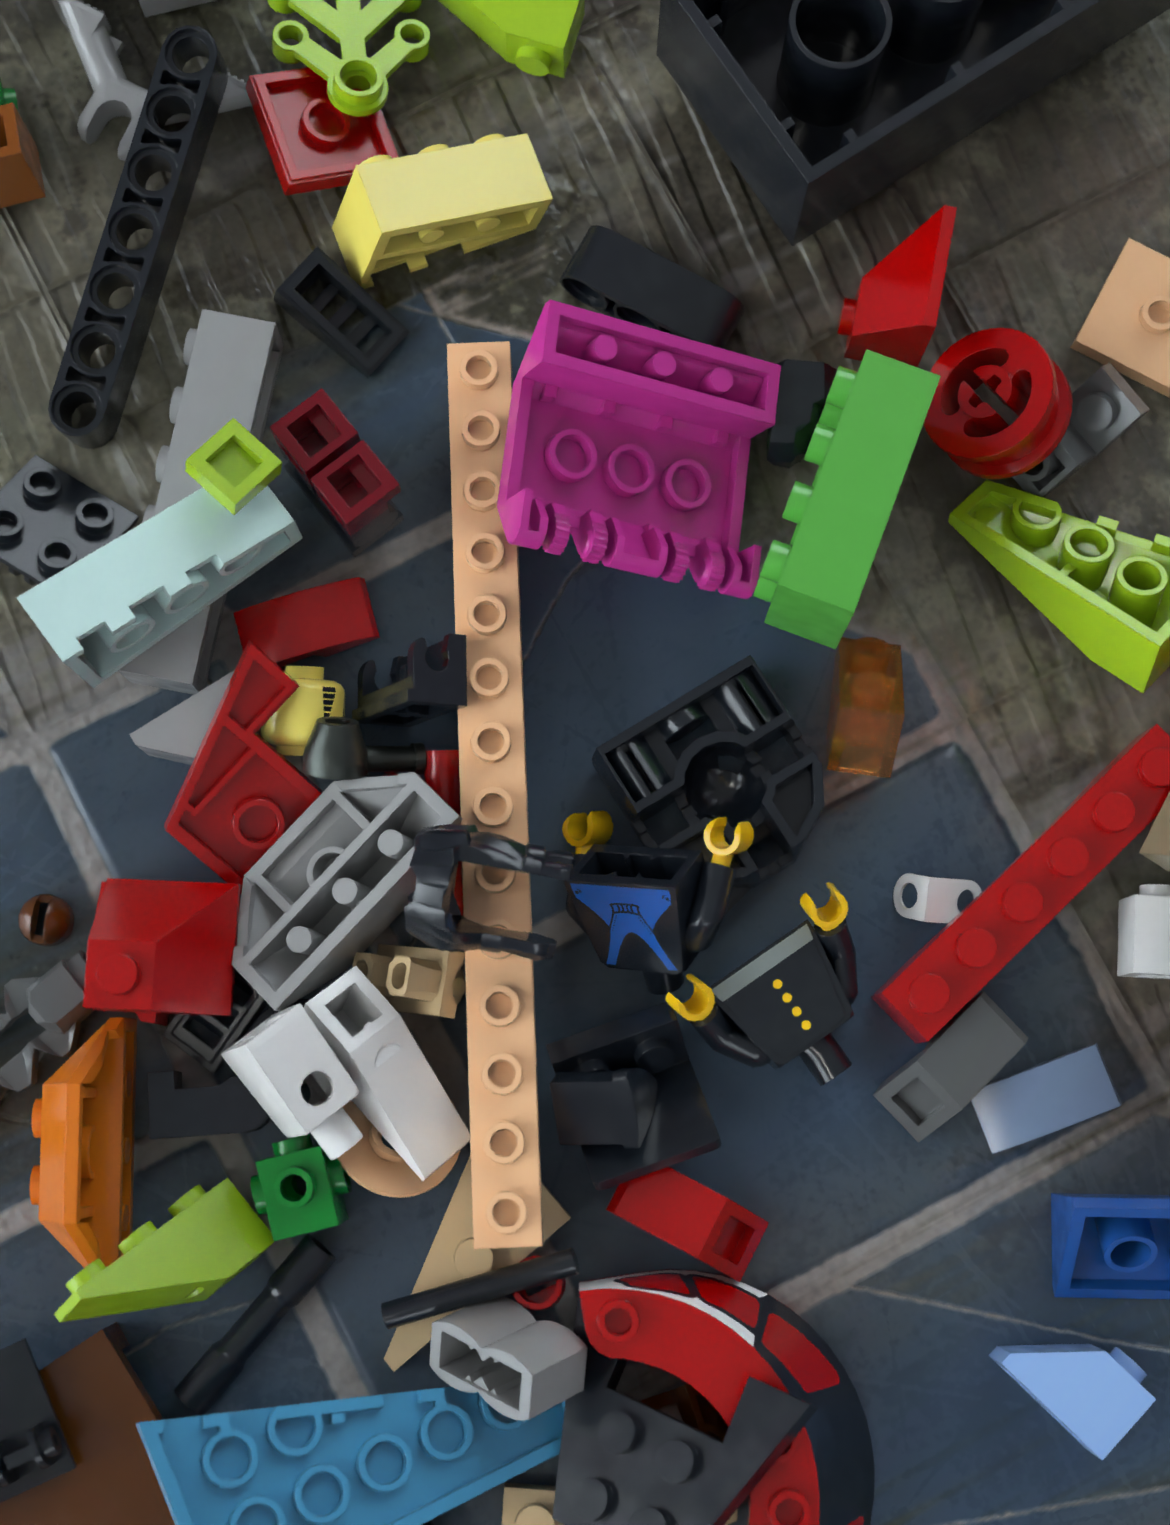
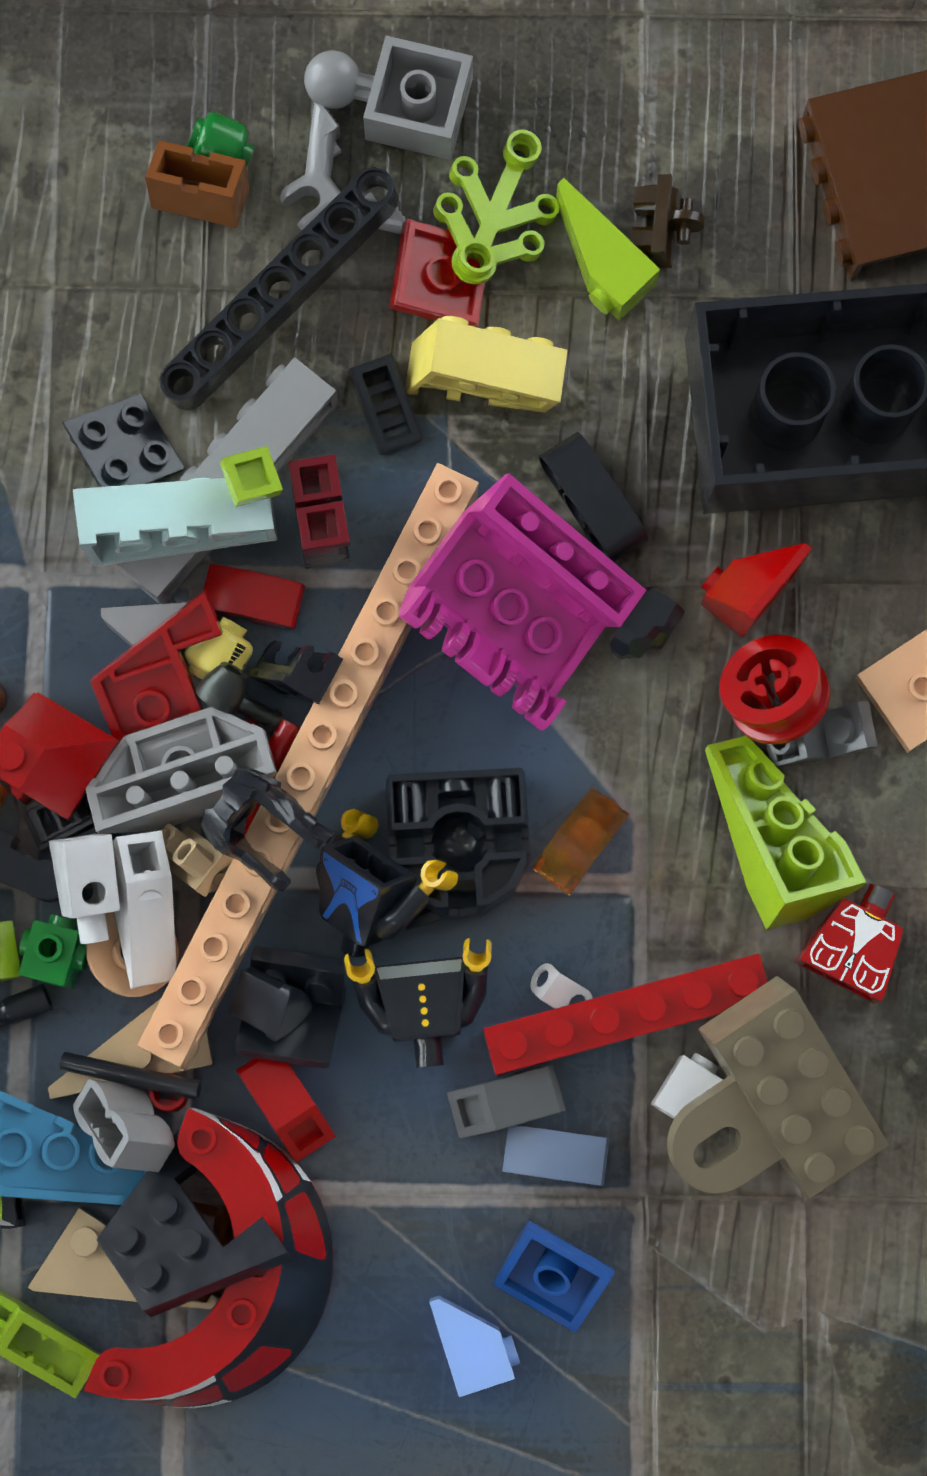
camera: 30 degrees right, 0 degrees up
(840, 519) = (637, 701): bright green piece -> none

